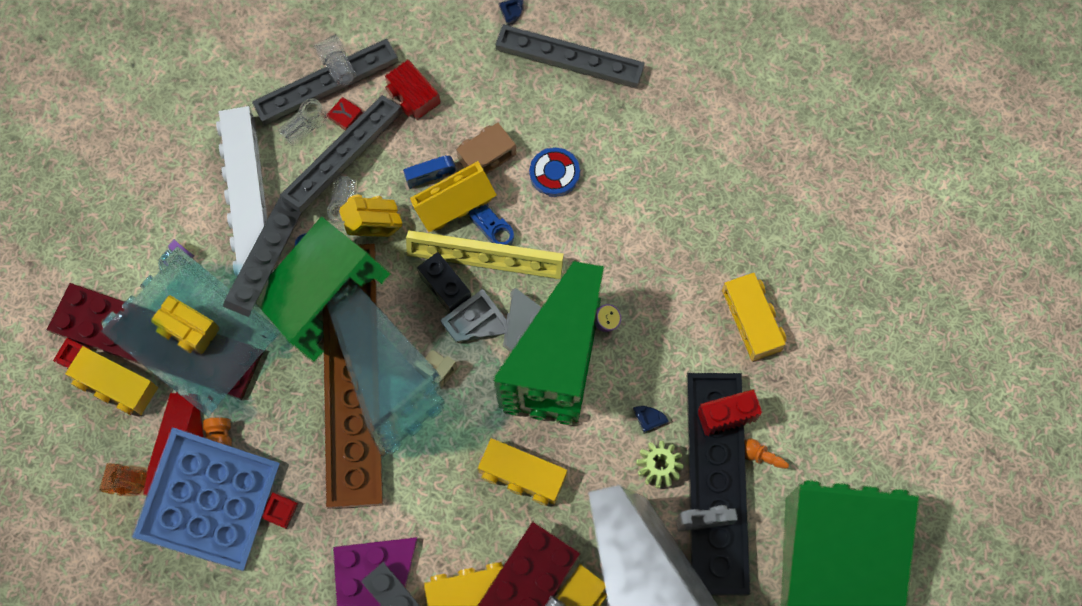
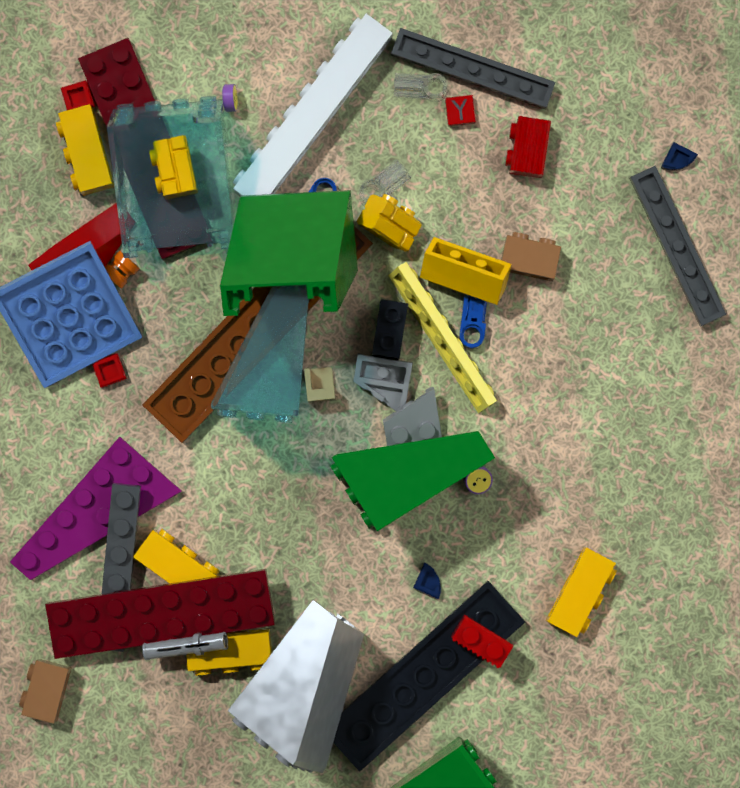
camera: 45 degrees right, 15 degrees up
(122, 480) = (25, 236): clear orange piece -> none
(262, 259) = (283, 174): dark grey plate -> none
(334, 57) = (497, 57): clear piece -> none
(340, 154) = (422, 146): dark grey plate -> none
(429, 170) = (472, 228): blue piece -> none
(522, 472) = (298, 525): yellow brick -> none
(554, 172) = (564, 327): tile -> none
(657, 454) = (405, 627): yellowish green gear -> none
(698, 519) = (375, 684): light grey wing -> none
(760, 453) = (474, 683): orange bar -> none

